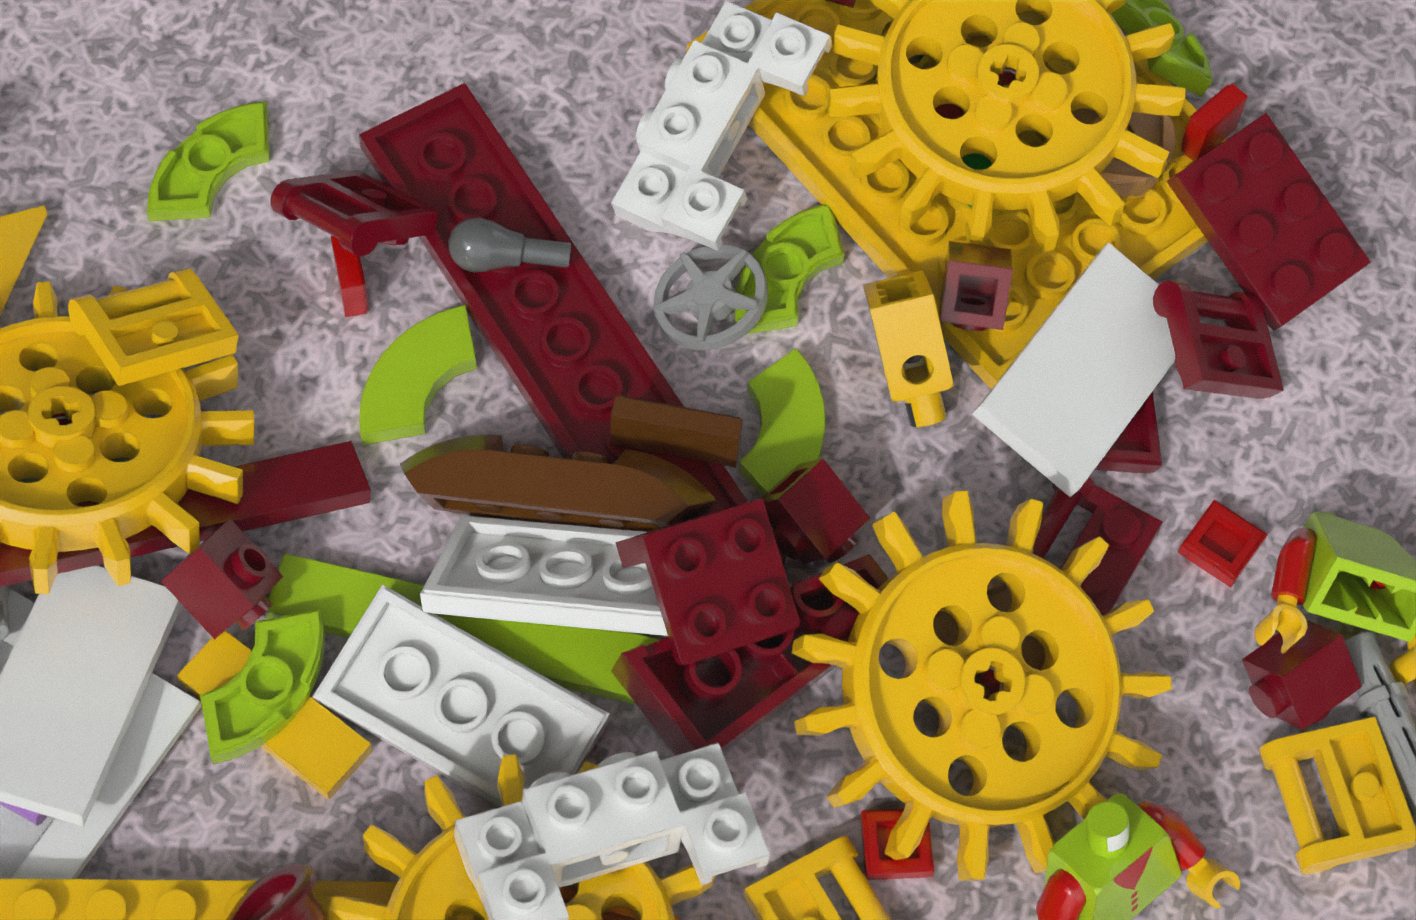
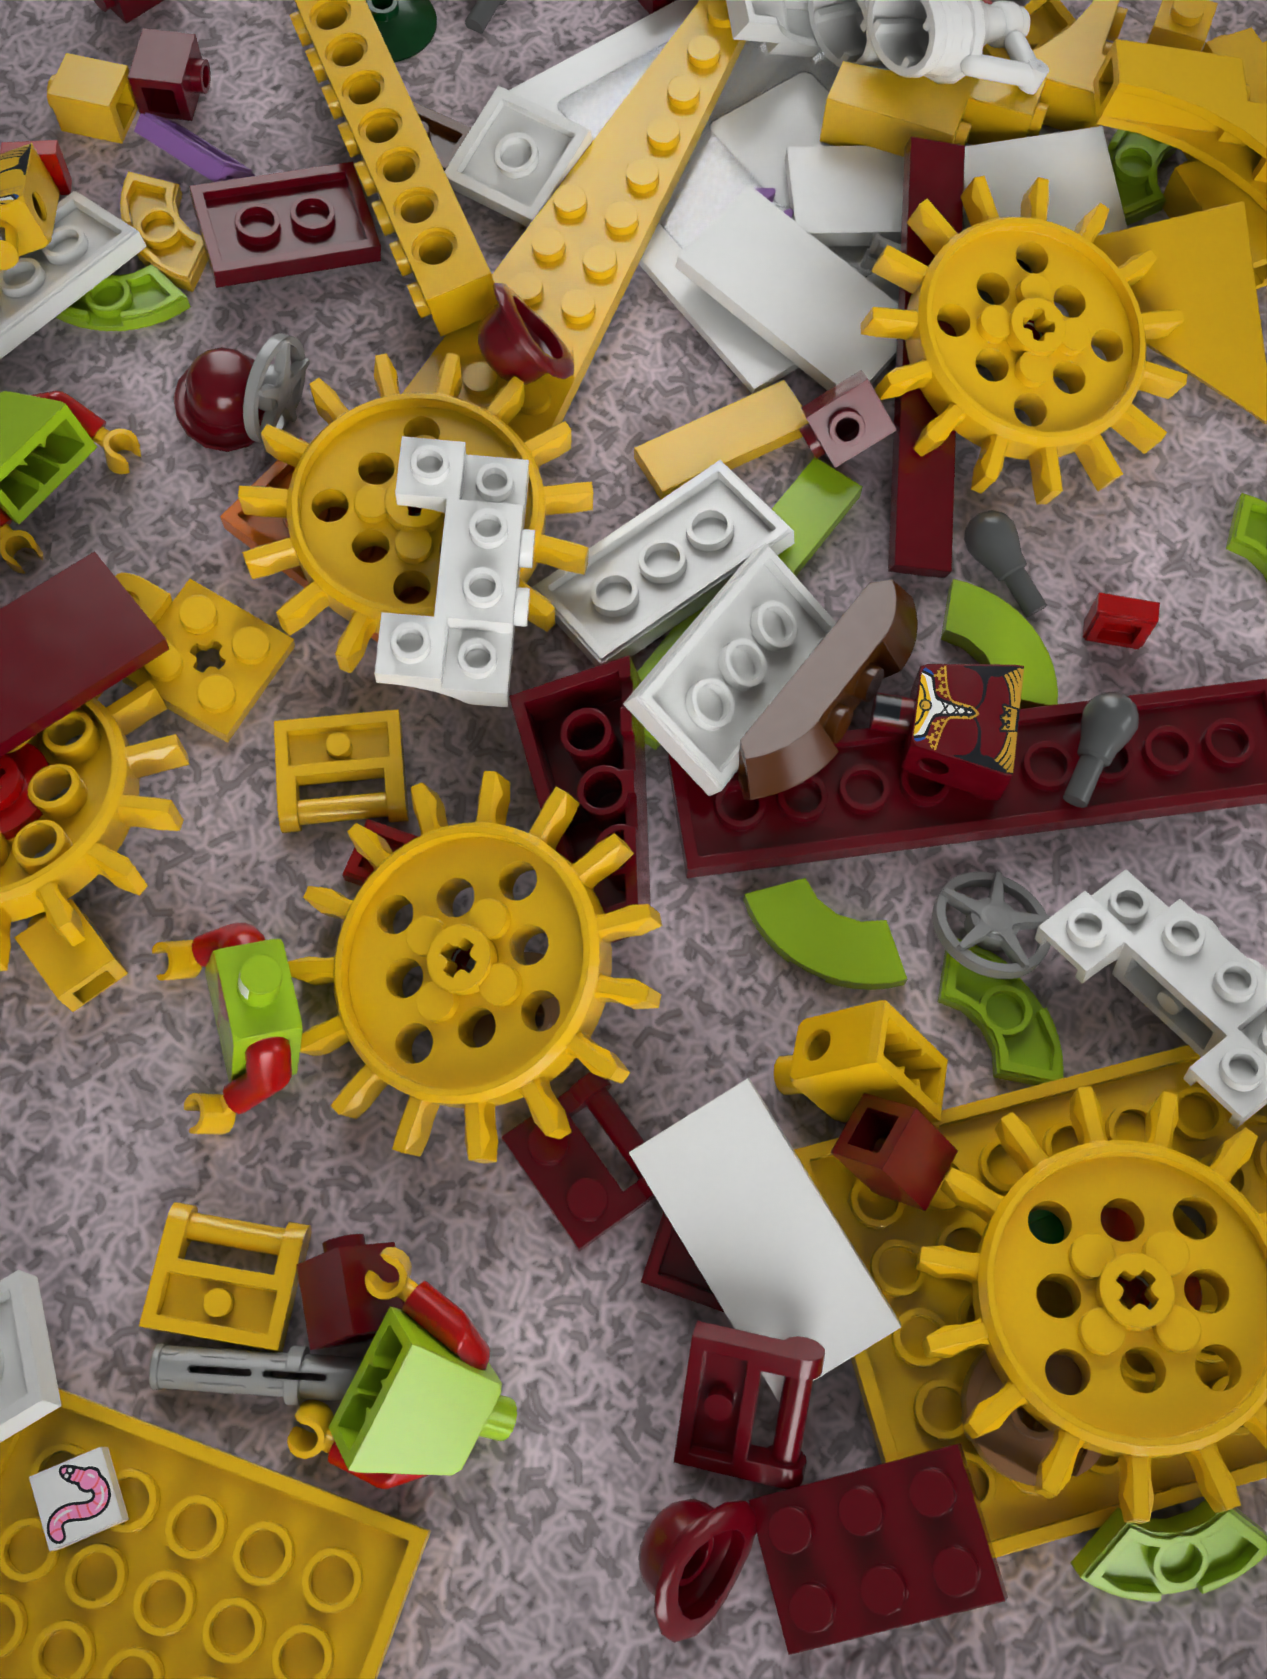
camera: 115 degrees right, 5 degrees up
(154, 327) = (1089, 424): yellow plate -> none
(268, 688) = (742, 432): lime tile -> none
(303, 409) = (996, 545): none -> dark grey piece
(354, 210) = (1186, 652): dark red plate -> none
(542, 363) = (957, 725): none -> dark red torso
(676, 430) = (844, 809): reddish brown tile -> none
(716, 580) = (664, 745): dark red bracket -> none
(814, 514) = (718, 907): dark red brick -> none
(1213, 122) = (1017, 1535): red tile -> none
(1222, 543) = (534, 1305): red tile -> none
(1348, 349) = (693, 1561): none -> dark red hat

